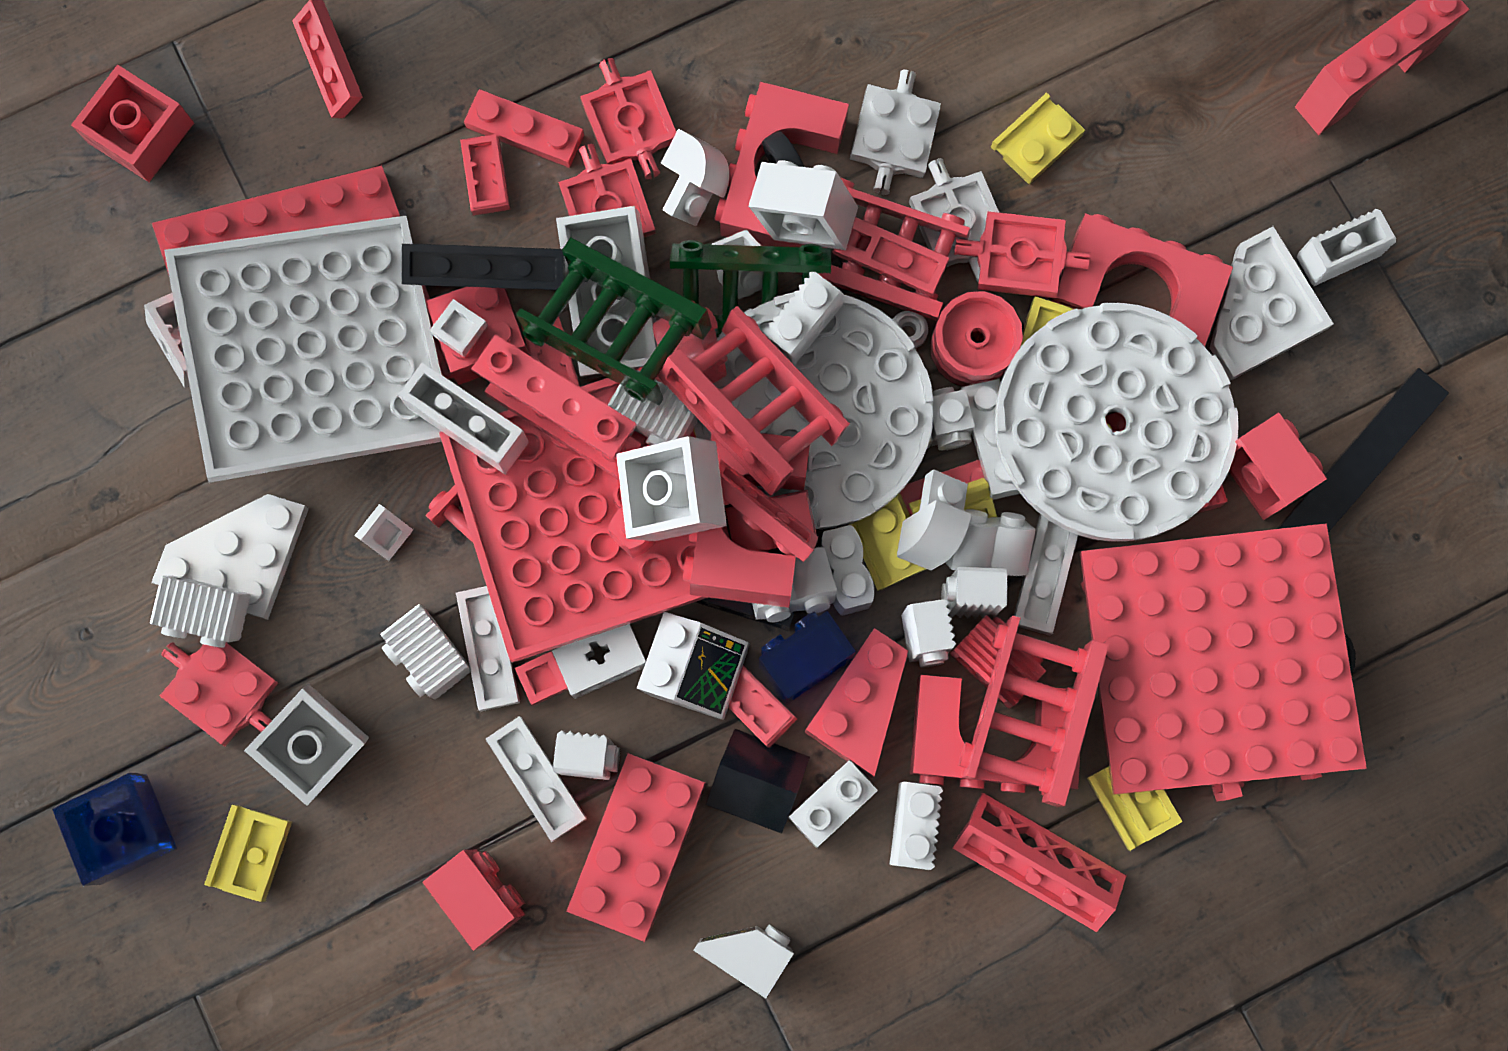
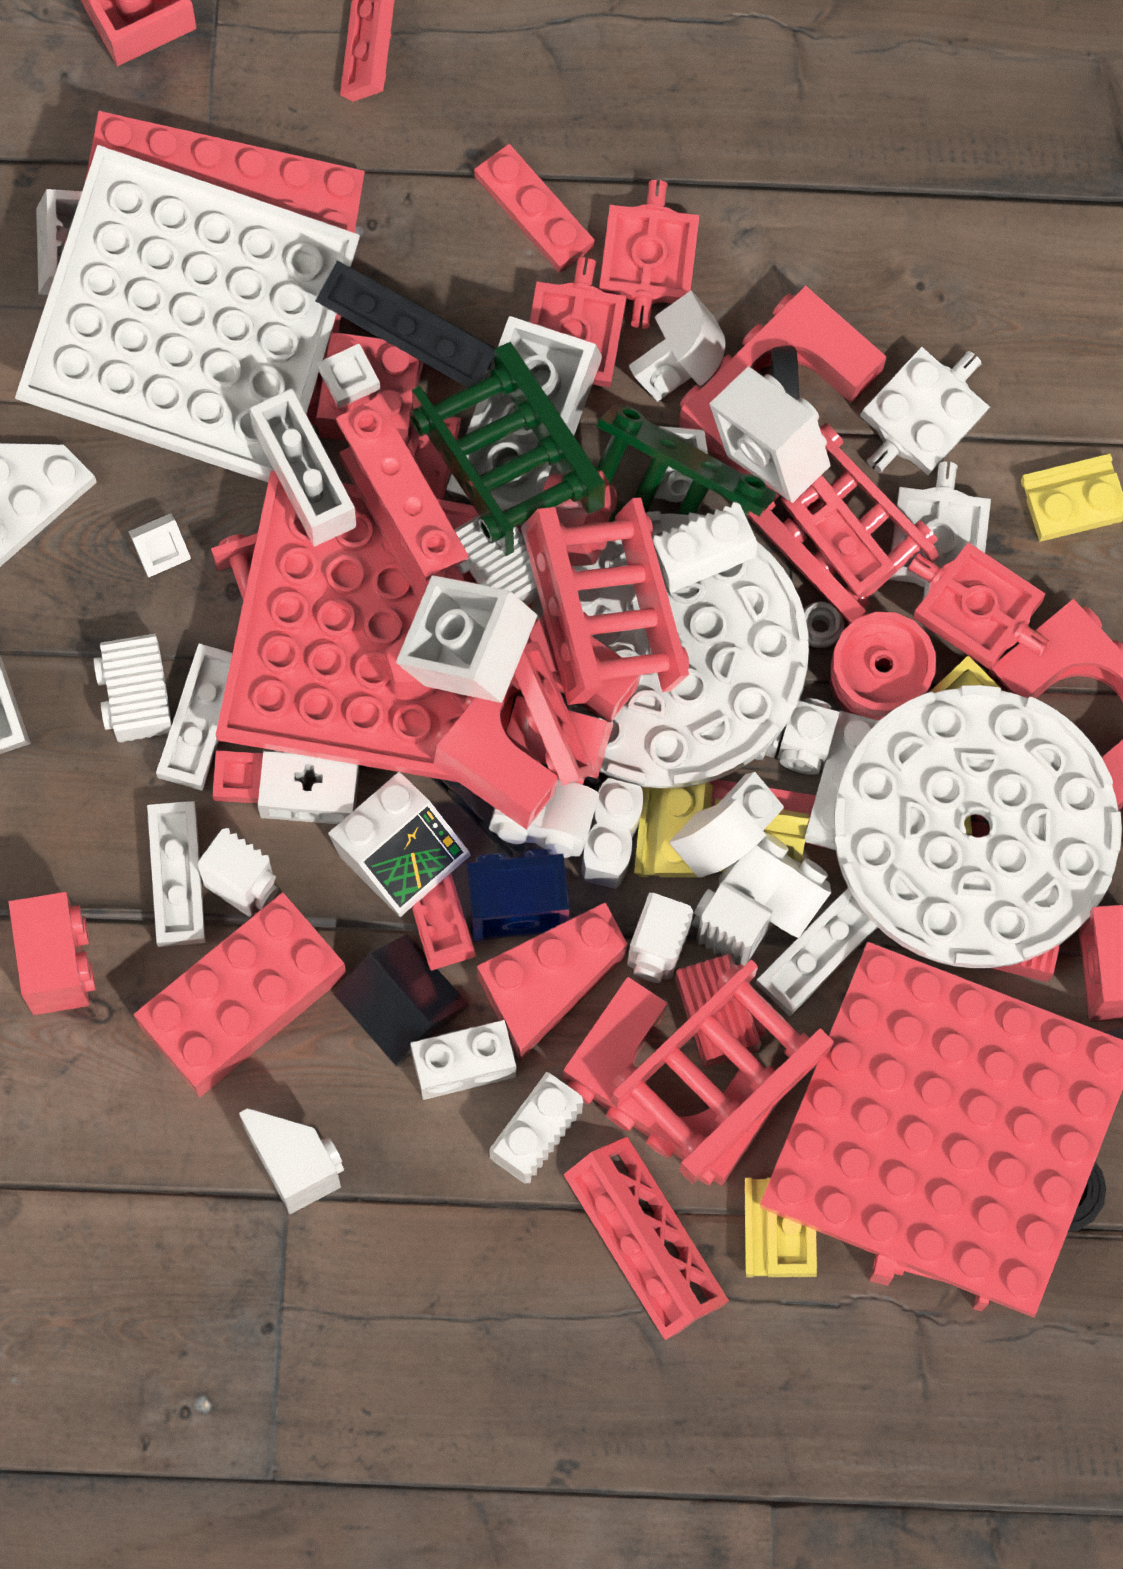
camera: 25 degrees right, 5 degrees down
(485, 174) = (466, 235): coral plate -> none

